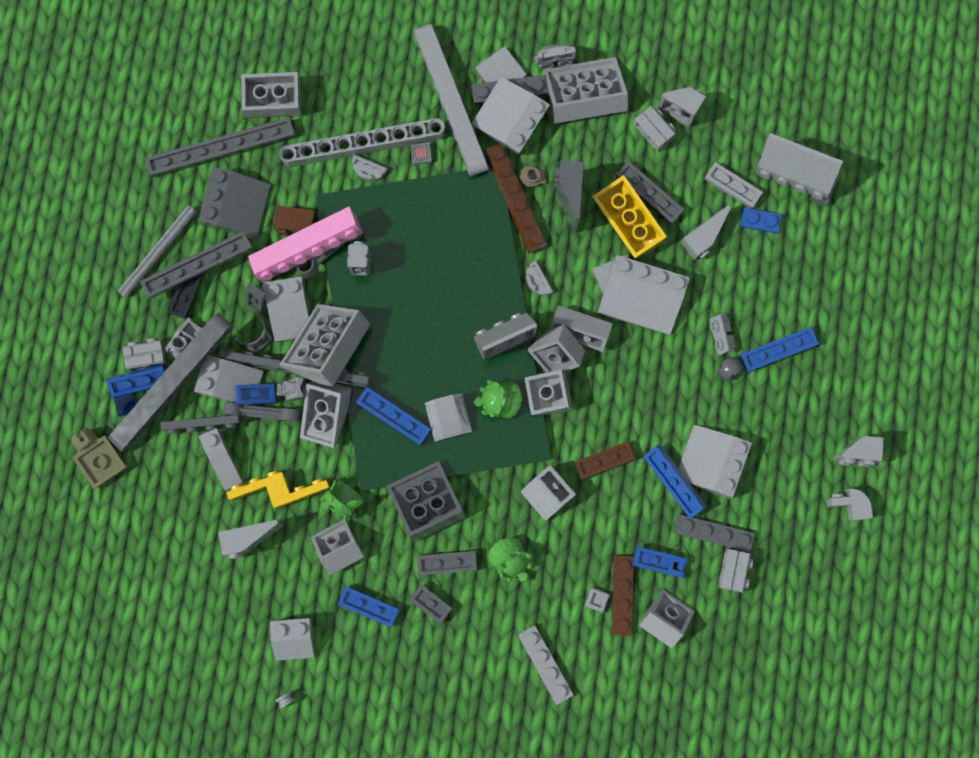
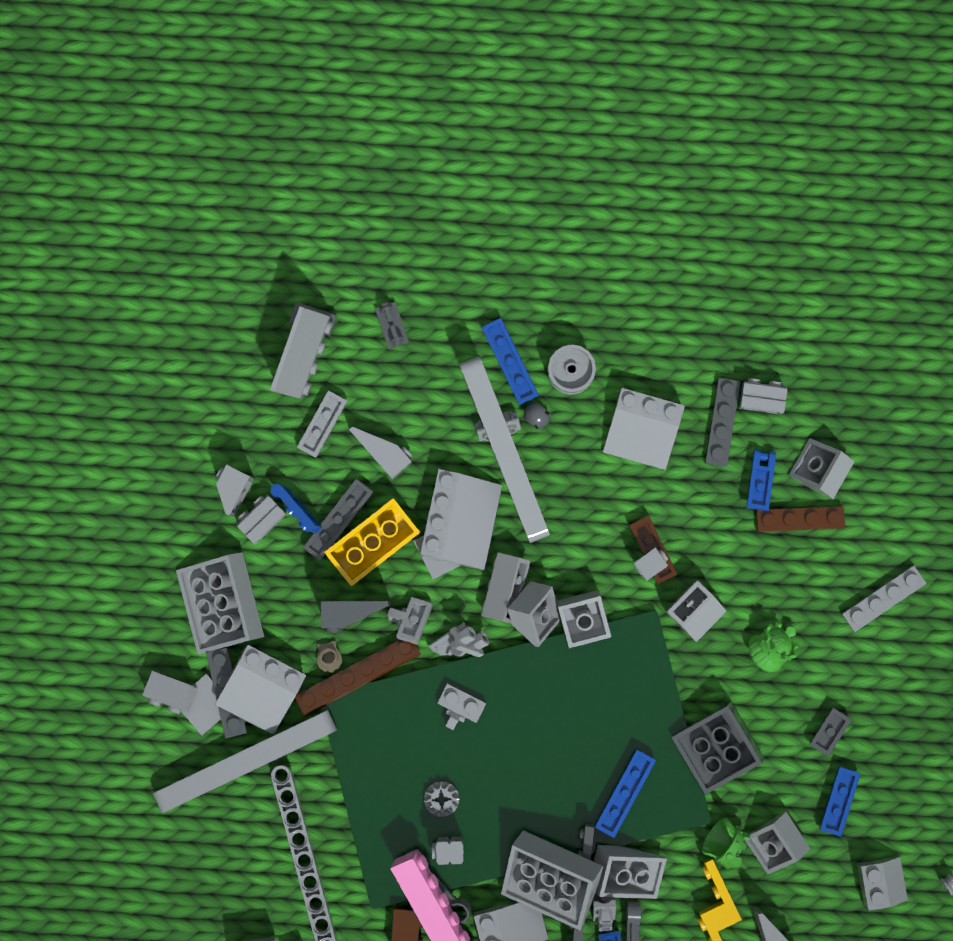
camera: 95 degrees left, 5 degrees up
(367, 169) = (335, 851): light grey tile -> none
(409, 266) = (448, 791): none -> light grey gear
(421, 153) = (311, 789): tile -> none
(446, 563) = (783, 717): dark grey plate -> none
(448, 417) = (621, 730): light grey slope -> none
(481, 281) = (460, 706): none -> light grey hinge
(500, 399) = (596, 673): bright green hair -> none
(505, 335) = (522, 675): light grey slope -> none
(513, 42) = (170, 692): none -> light grey brick
(536, 290) = (468, 641): none -> light grey hips
(558, 246) = (411, 620): none -> light grey hinge
(560, 52) = (180, 643): light grey slope -> none
(593, 455) = (651, 563): none -> light grey brick
(597, 600) = (807, 547): light grey tile -> none
(662, 156) = (296, 508): none -> blue plate
(674, 481) = (670, 469): blue plate -> none
(703, 335) = (504, 449): none -> light grey beam
(760, 220) = (360, 390): blue plate -> none
(780, 401) = (567, 382): none -> light grey wheel
(816, 251) = (391, 325): none -> dark grey hinge
(857, 504) = (677, 266): light grey brick -> none
(863, 450) = (619, 266): light grey slope -> none

